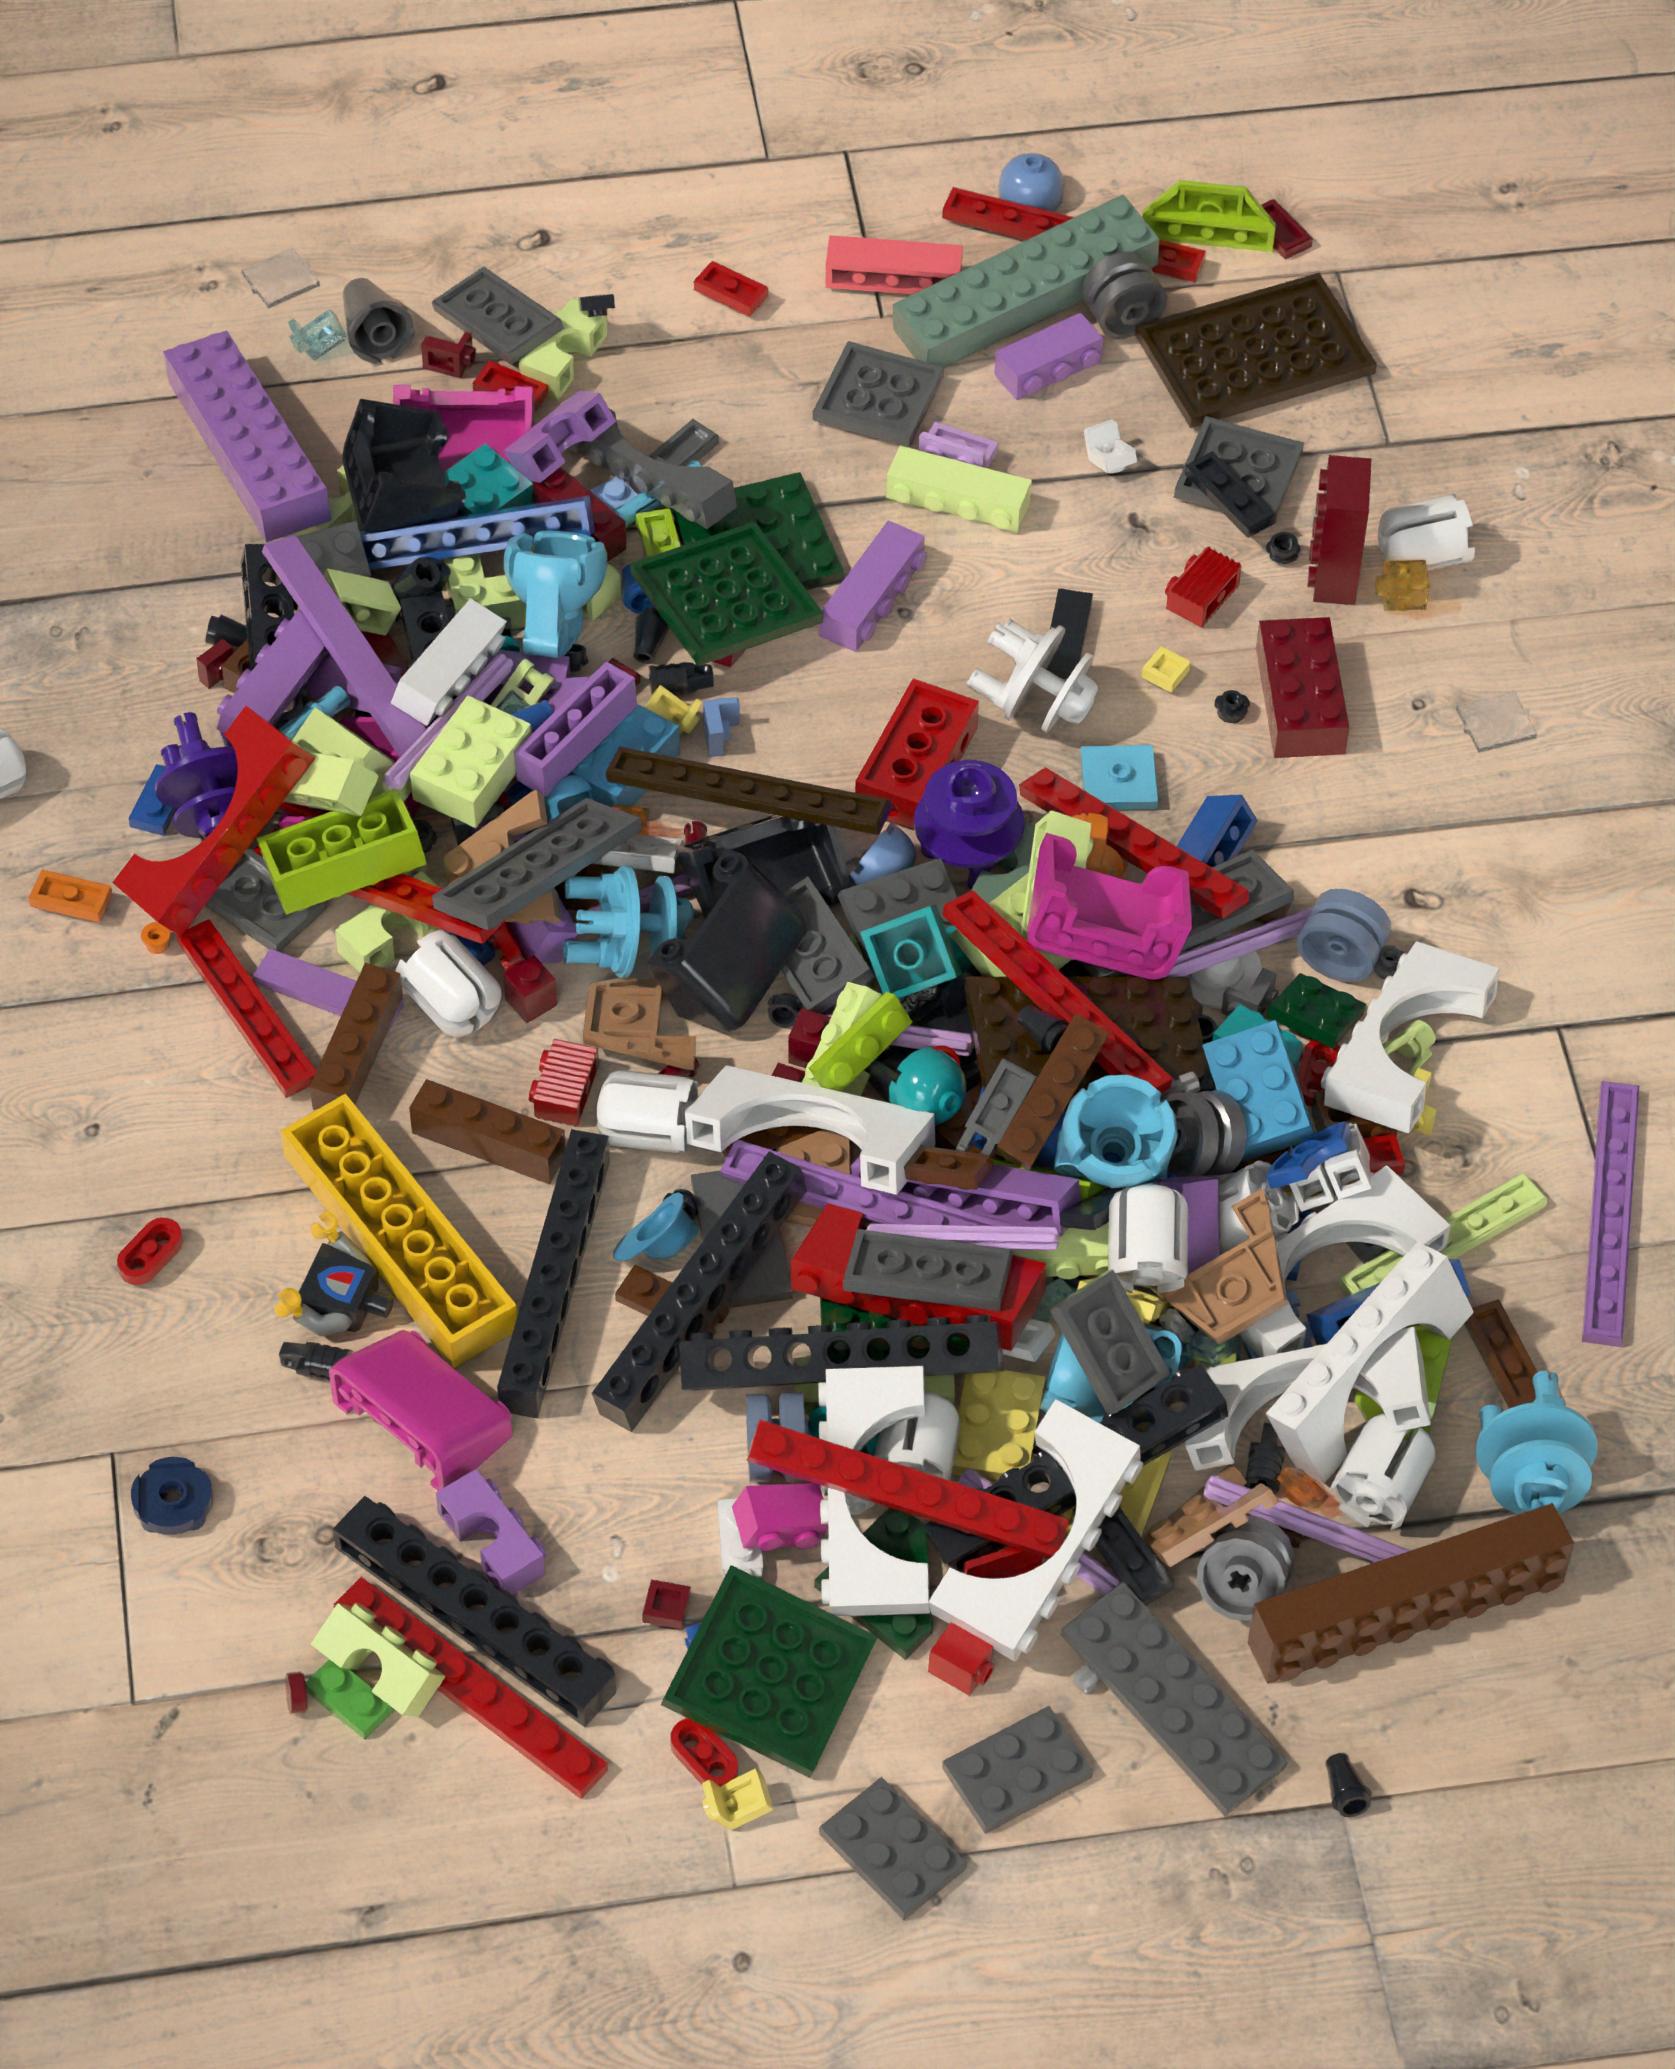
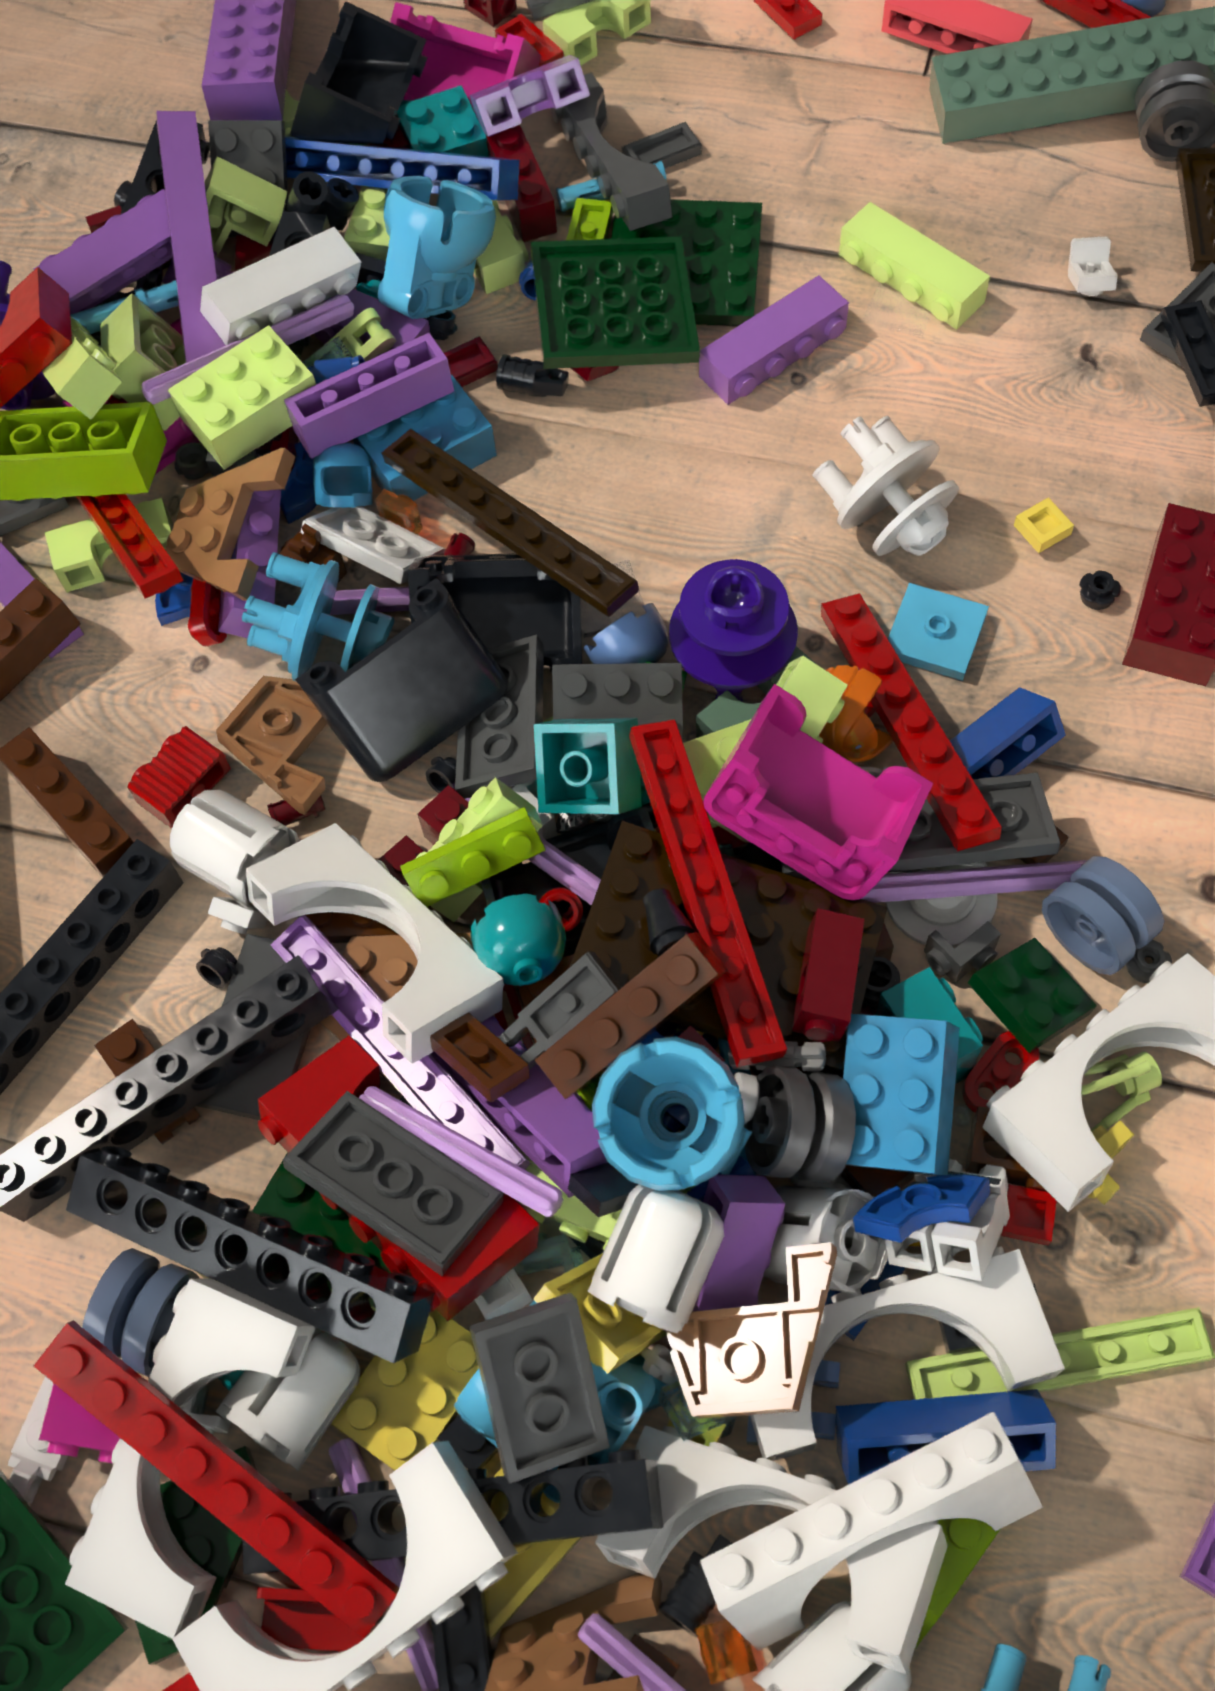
camera: 30 degrees right, 10 degrees up
(450, 984) = (97, 635): white cylinder -> none
(530, 989) = (200, 661): dark red brick -> none
(536, 863) = (242, 529): dark grey plate -> none
(614, 492) = (568, 172): light blue plate -> none
(649, 634) = (523, 325): black cone -> none
(661, 1233) = (172, 994): dark azure piece -> none
(673, 709) = (503, 410): light yellow bracket -> none
(677, 1162) = (236, 915): none -> white plate
(717, 718) = (541, 432): medium blue bracket -> none
(878, 394) = (880, 147): dark grey plate -> none
(925, 716) = (740, 516): red brick -> none
(958, 445) = (934, 220): lavender bracket -> none
(1048, 356) = (1073, 155): medium lavender brick -> none
(1072, 613) = (959, 447): black tile -> none
(1174, 1025) = (828, 976): none -> dark red brick
(1203, 586) = (1126, 445): red brick -> none
(1503, 1353) = (1068, 1566): reddish brown plate -> none

